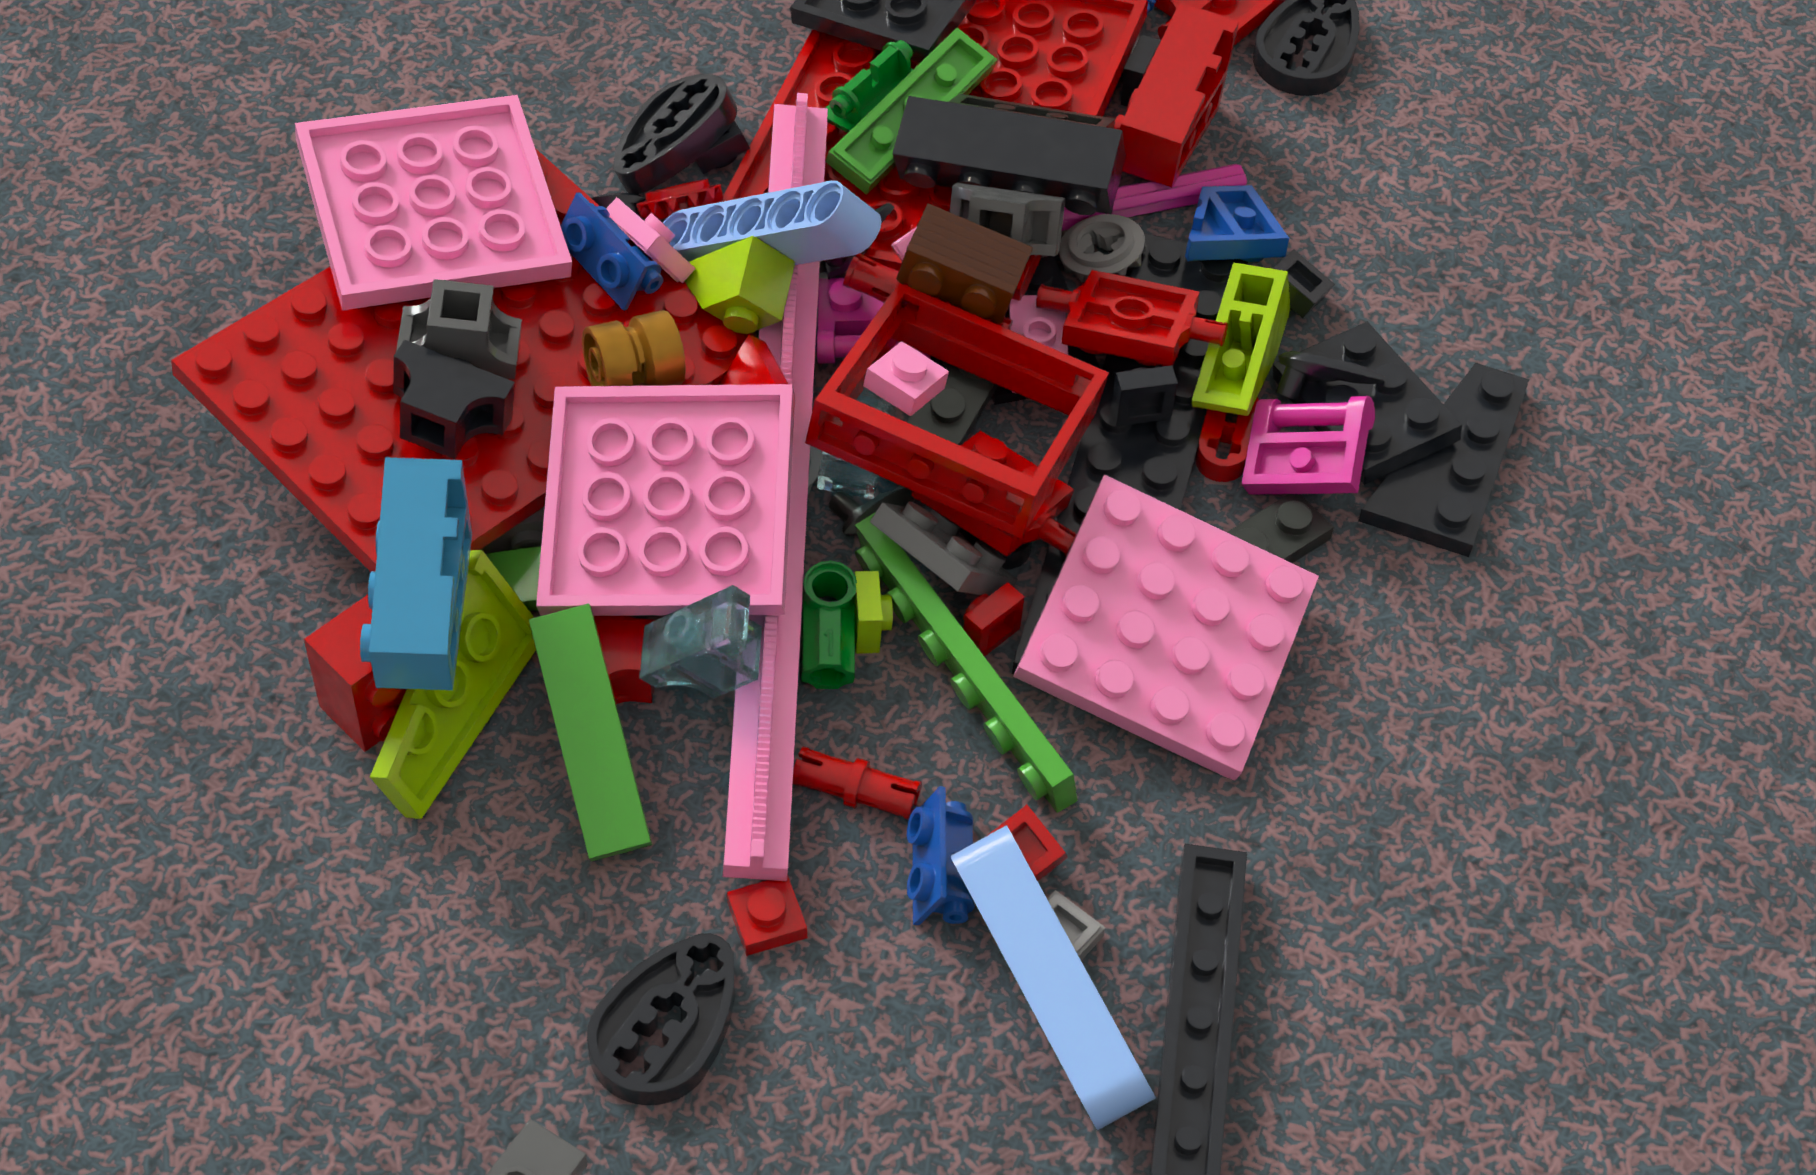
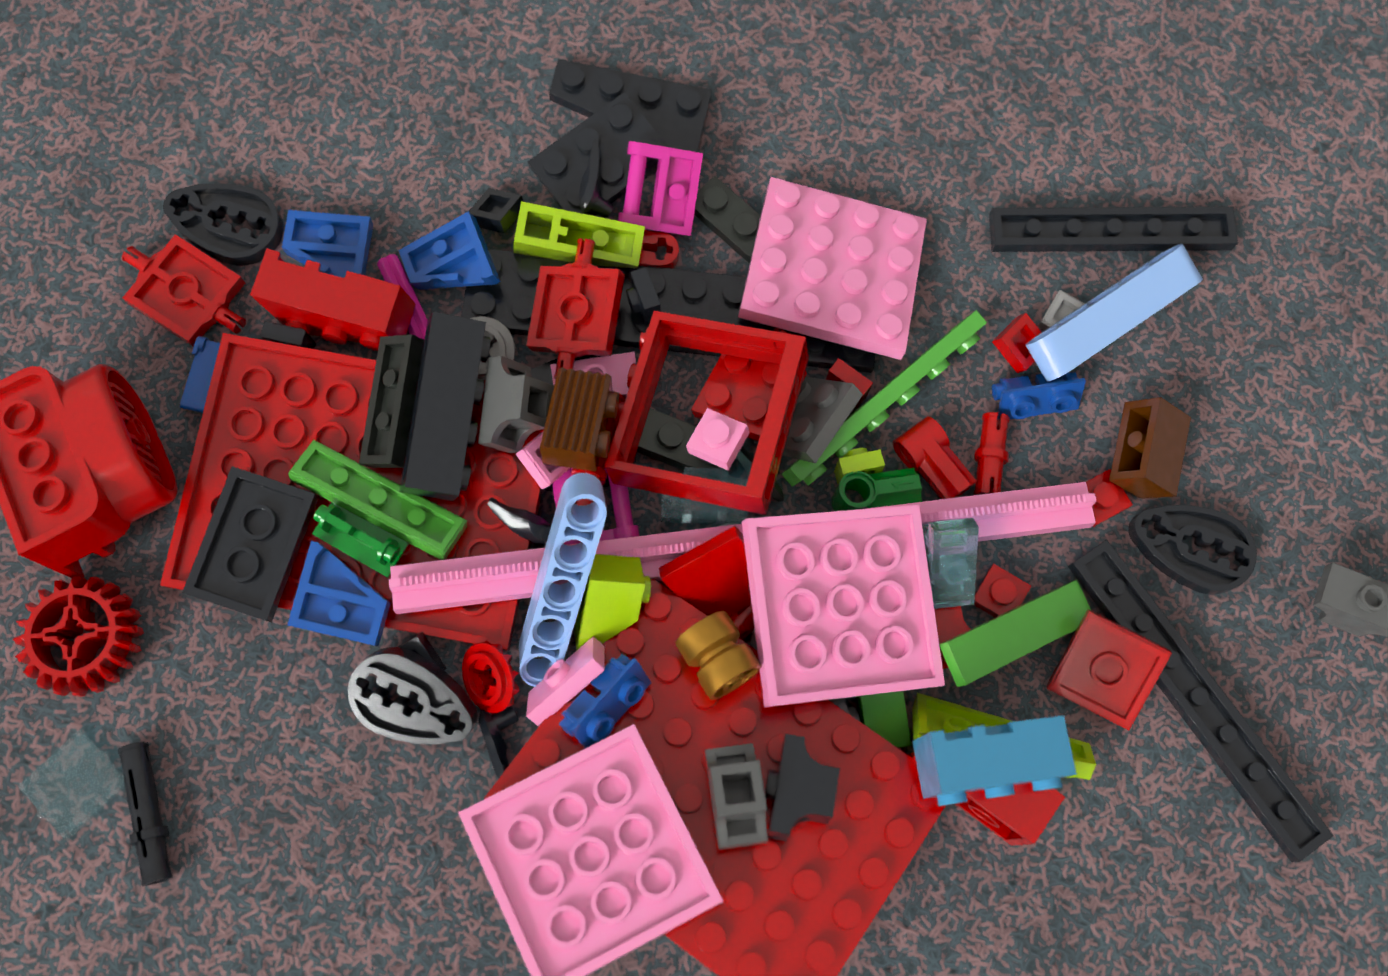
camera: 100 degrees left, 20 degrees up
(437, 961) = (1206, 707): none -> black plate
(513, 847) = (1108, 669): none -> red tile
(659, 755) = (1000, 591): none -> red plate
(802, 63) = (337, 600): none -> blue wing
(820, 972) = (1150, 448): none -> reddish brown brick
(875, 699) = (929, 453): none -> red piece
(1263, 126) = (330, 239): none -> blue wing

